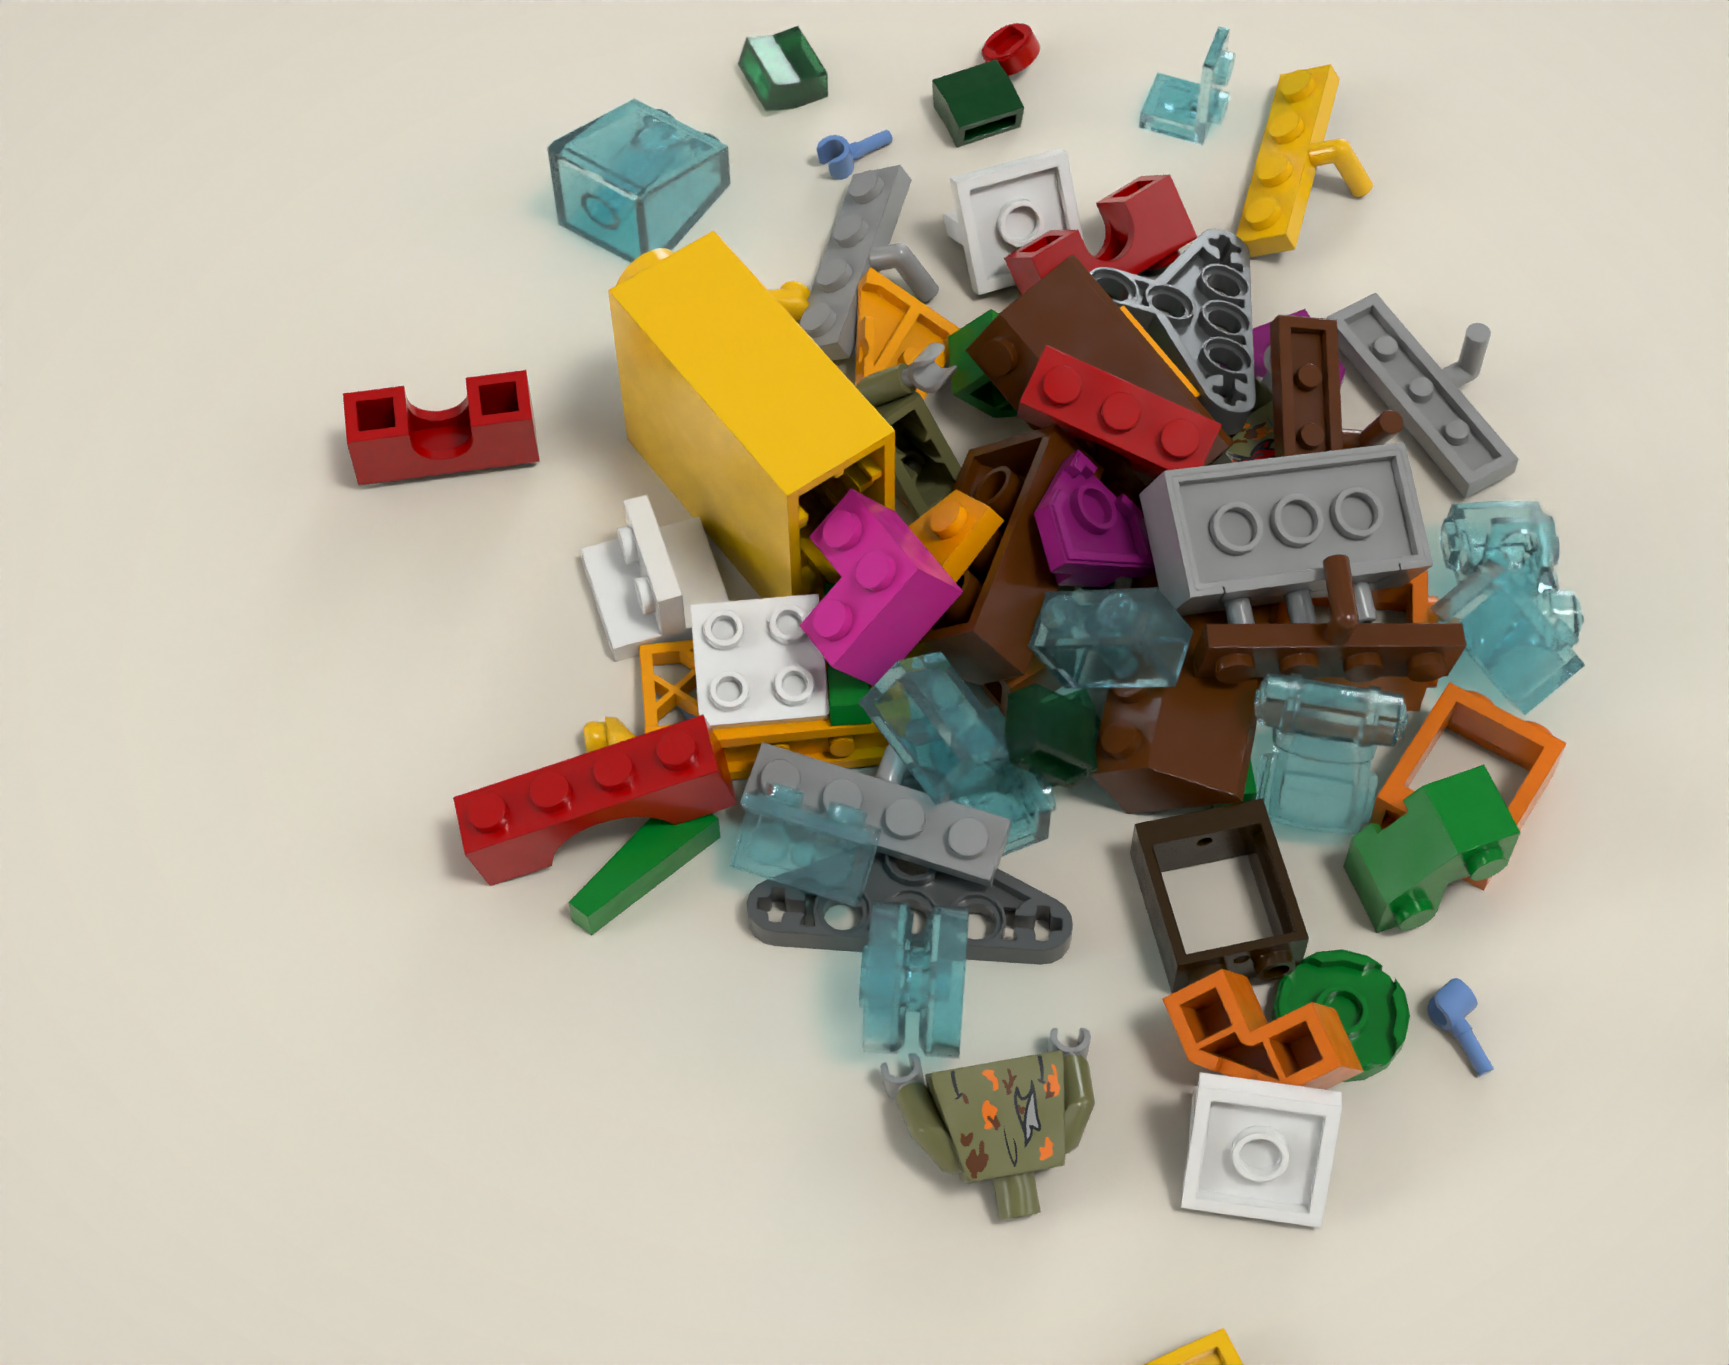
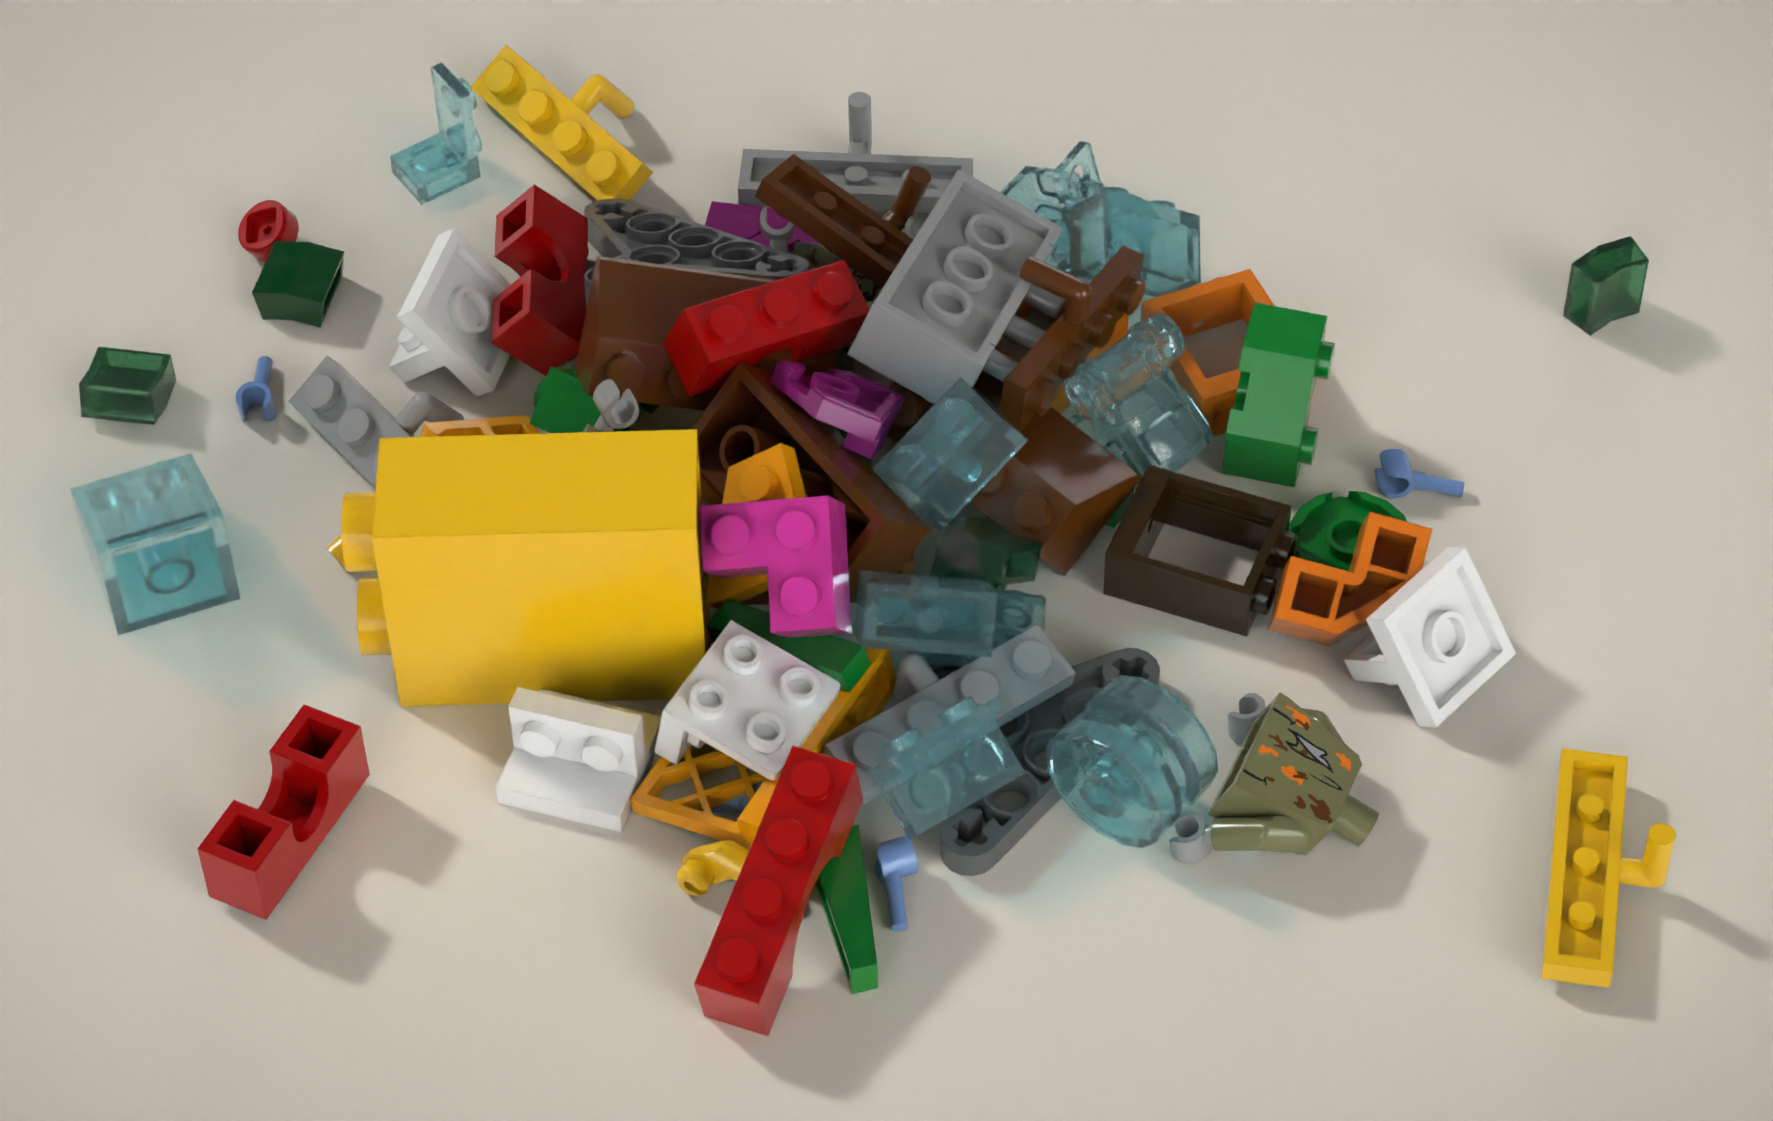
camera: 55 degrees left, 10 degrees down
(709, 867) = (896, 860): none -> medium blue hand

